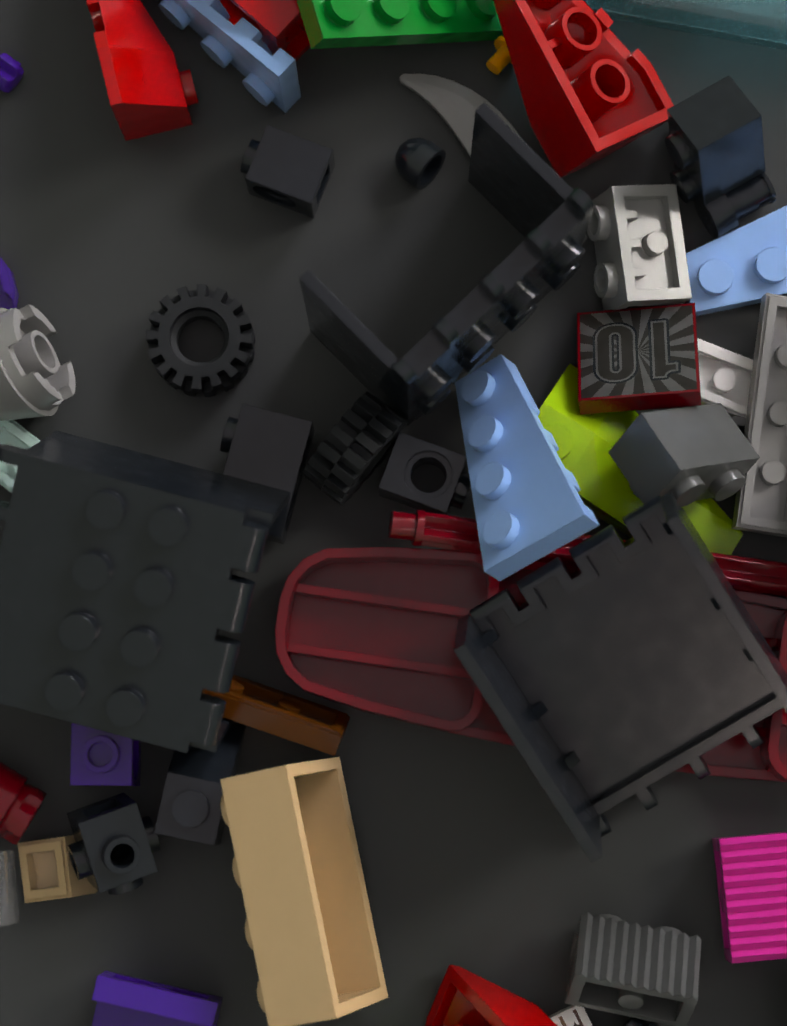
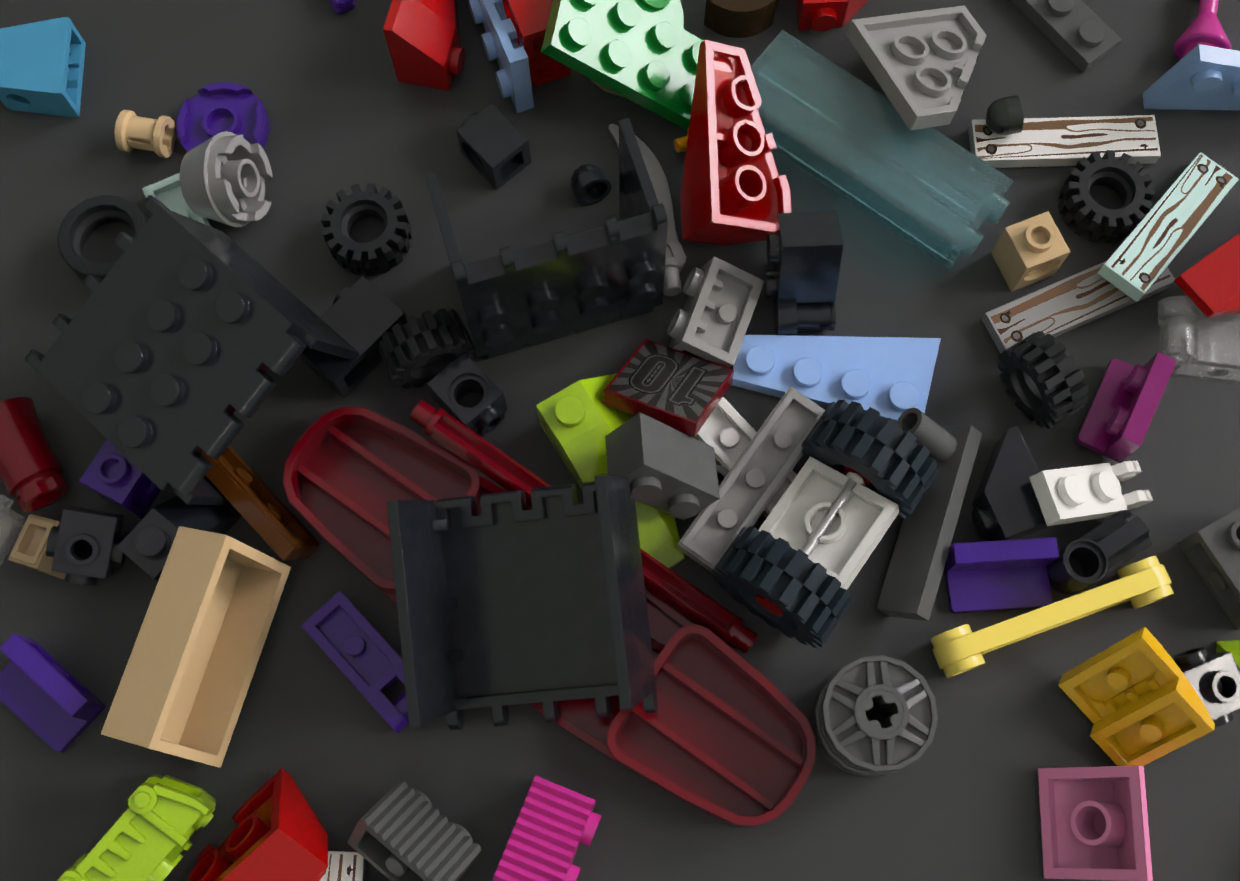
camera: 25 degrees right, 10 degrees down
(473, 810) = (360, 655): none -> dark purple plate
(518, 483) = (525, 417): light blue wing -> none

